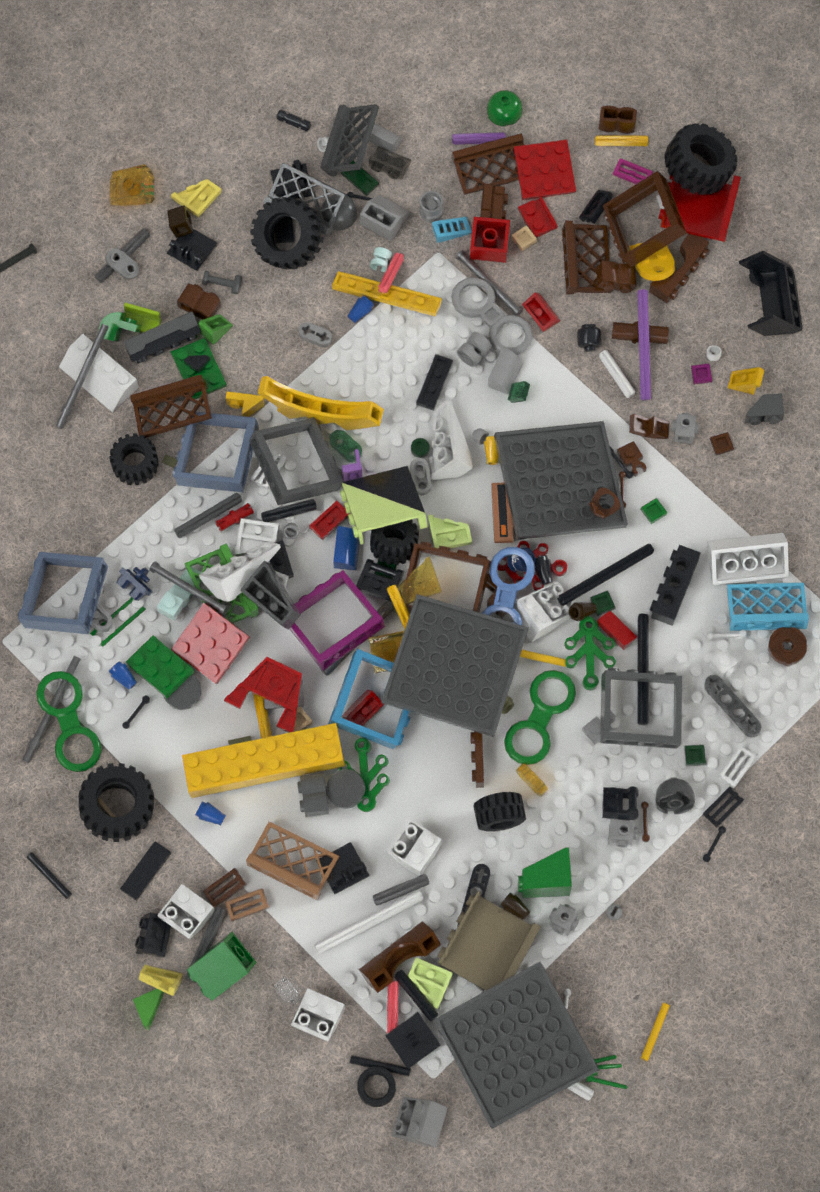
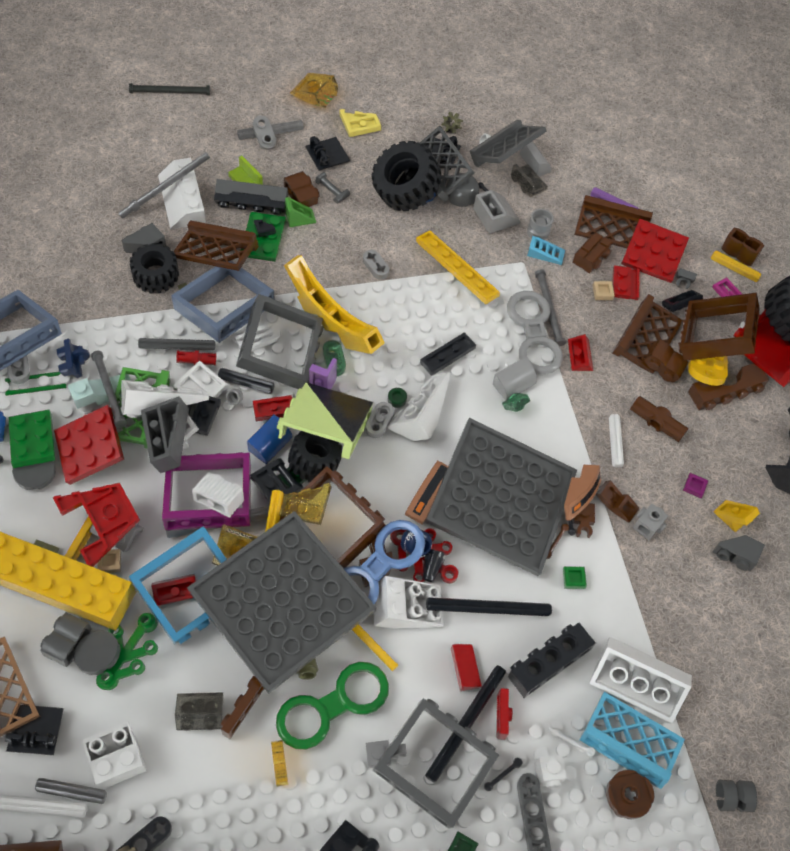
camera: 25 degrees right, 10 degrees down
(103, 438) = (146, 235): none -> dark grey slope
(116, 322) = (221, 166): green brick -> none
(180, 221) = (331, 128): dark brown brick -> none
(249, 402) = (278, 280): yellow slope -> none
(283, 139) = (454, 126): none -> olive gear
(293, 120) = (473, 114): black axle -> none
(349, 617) = (218, 494): none -> white brick
(360, 309) = (427, 266): blue cone -> none
(361, 180) = (496, 177): dark green tile -> none
(381, 258) = (472, 239): light aqua wheel -> none
(390, 272) = (471, 252): coral axle -> none
(449, 533) = (369, 481): yellowish green wing -> none
(449, 781) = (199, 711): none -> clear smoke bracket
(475, 347) = (500, 345): light grey wheel -> none
(480, 435) = (456, 418): light grey hinge -> none
(489, 239) = (572, 273): red brick -> none
(491, 451) = (455, 436): yellow cone -> none
(499, 811) = (219, 775): black tyre -> none
(504, 108) = (650, 191): green cylinder -> none
(581, 610) = (442, 626): dark brown cone -> none
(585, 180) = (685, 275): none -> dark grey tile
(589, 337) = (609, 396): black head -> none
(590, 650) = (425, 669): green plant -> none
(597, 510) = (519, 543): reddish brown hair -> none
(603, 602) = (469, 632): dark green tile -> none
(618, 437) = (582, 490): none -> nougat slope
(644, 345) = (656, 428): medium lavender axle -> none
(666, 646) = (504, 714): none -> red plate
(696, 674) = (517, 763): none -> black hinge
(713, 349) = (714, 474): white hinge -> none
(721, 443) = (678, 557): reddish brown tile -> none

